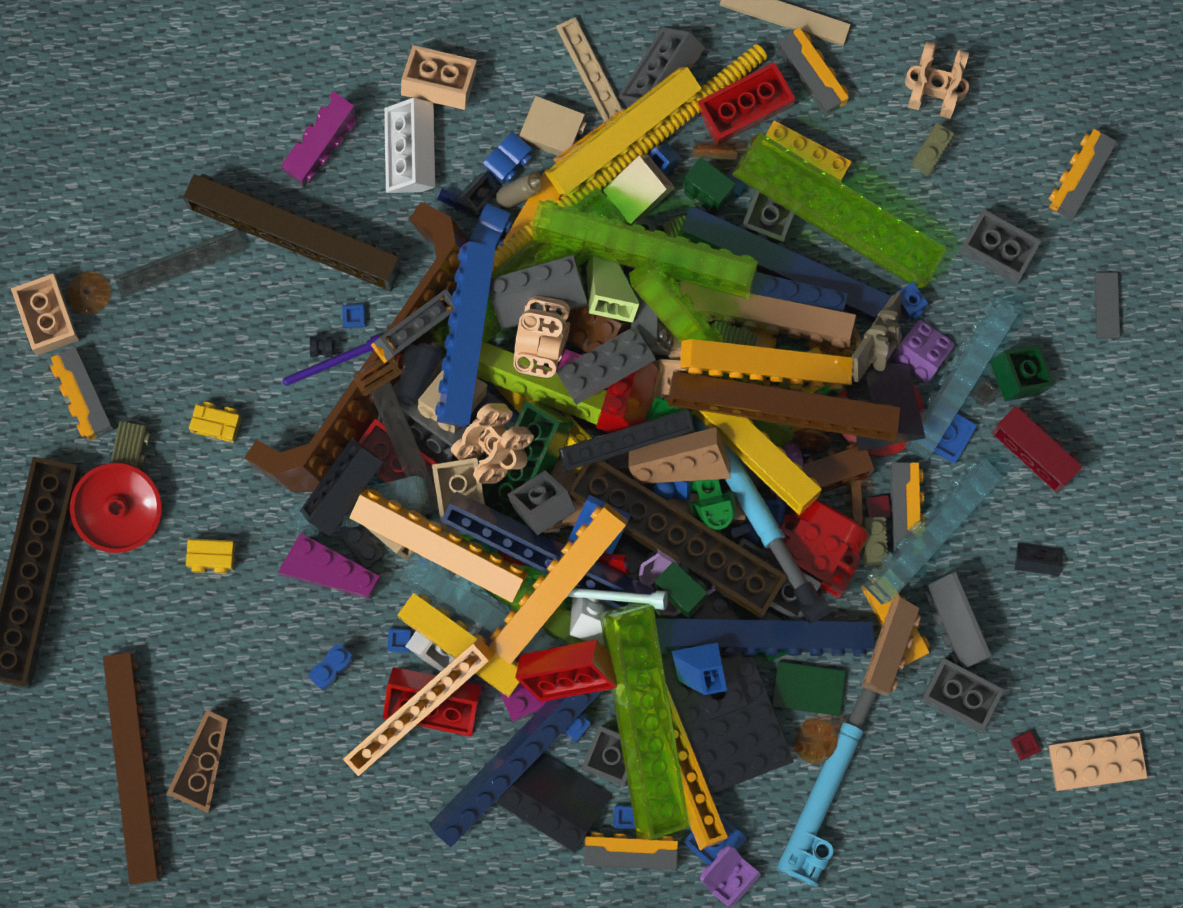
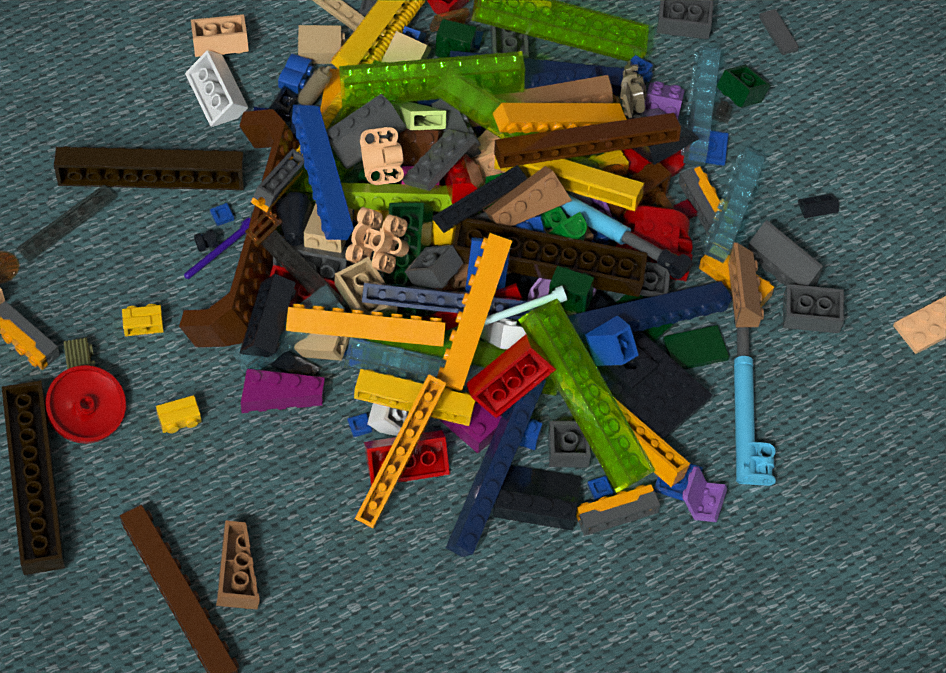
camera: 25 degrees left, 20 degrees down
(320, 140) = (145, 102): magenta wedge -> none
(327, 671) = (313, 460): blue brick -> none
(816, 741) = (721, 379): clear orange dish -> none
(876, 545) = (697, 230): olive brick -> none
(1025, 745) = (876, 330): dark red tile -> none
(1036, 449) = (780, 130): dark red brick -> none

